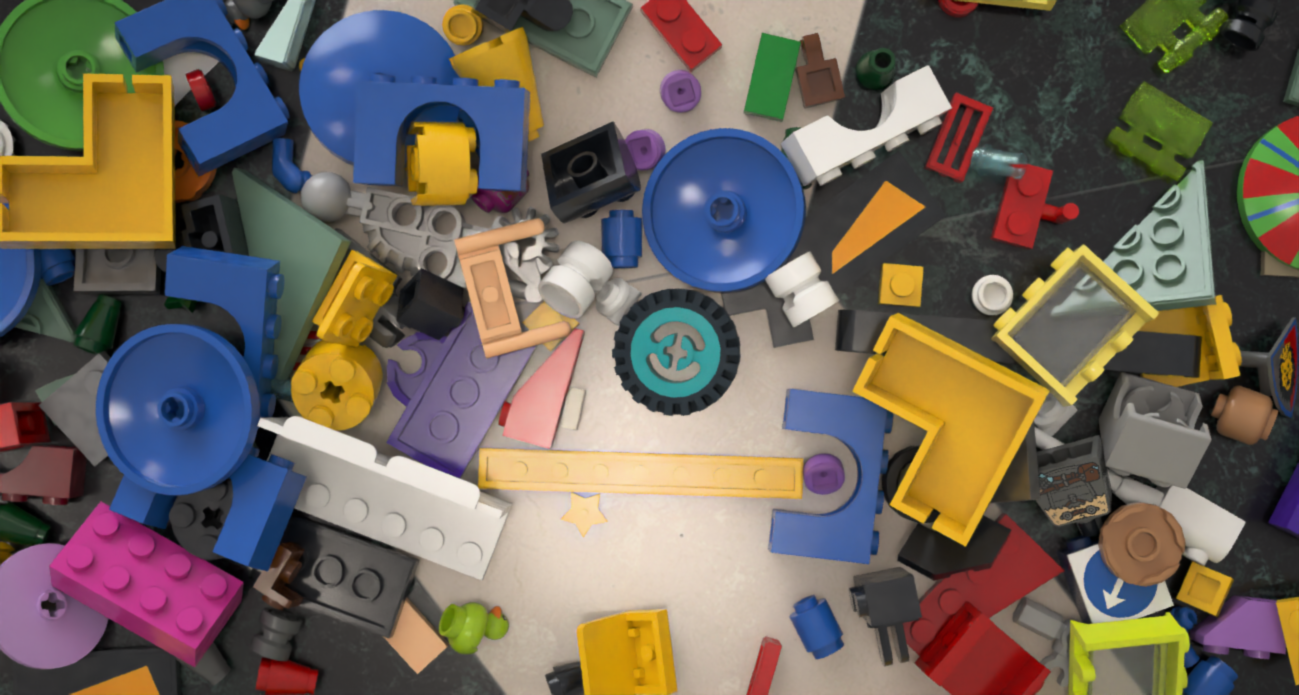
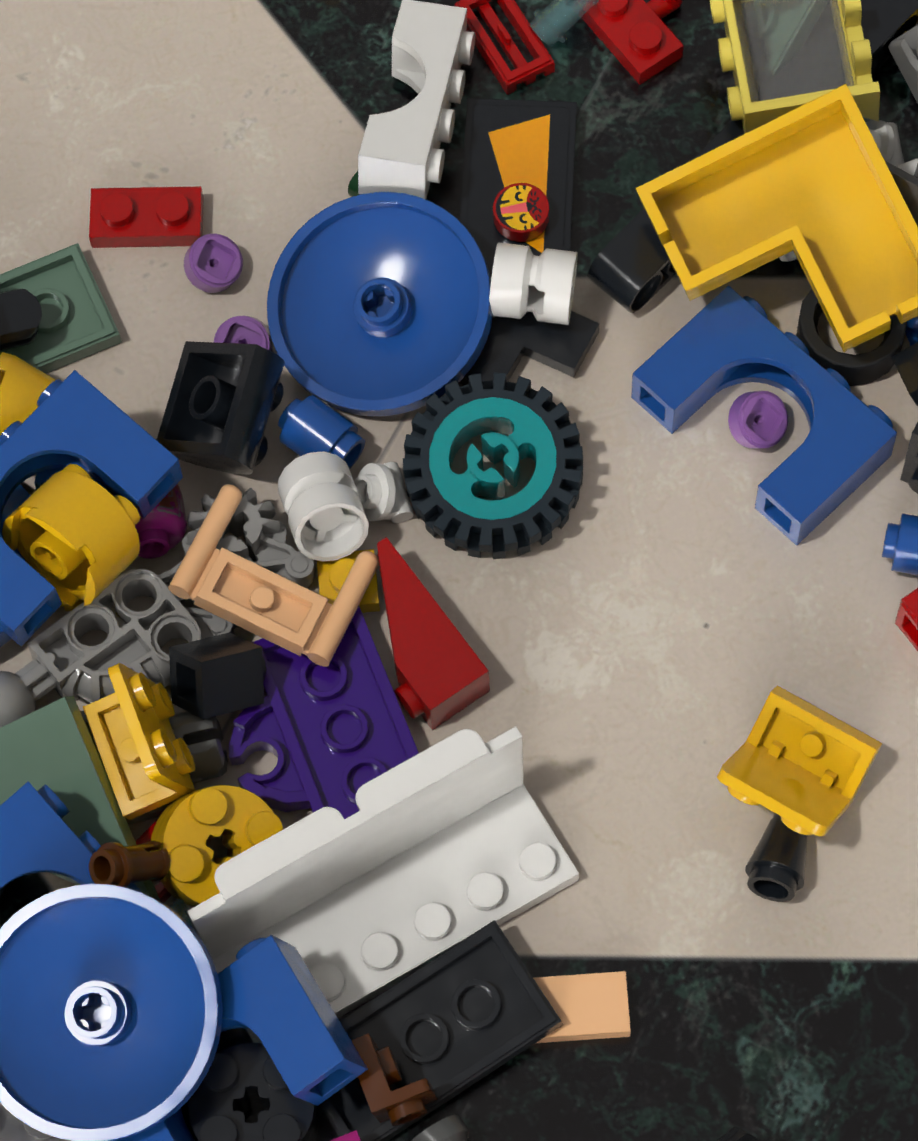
camera: 45 degrees left, 20 degrees down
(264, 354) = (128, 864): none -> reddish brown pin
(469, 623) = (622, 923): lime animal -> none
(573, 408) = (466, 620): tile -> none
(584, 512) = (593, 707): yellow piece -> none
(640, 473) = (617, 591): yellow tile -> none
(772, 77) = (280, 167): green tile -> none
(819, 78) = (320, 121): reddish brown plate -> none
(846, 242) = (521, 212): none -> tile
(873, 76) = (361, 53): dark green cone -> none
(900, 285) = (610, 200): yellow plate -> none
(992, 295) = (700, 118): white plate -> none

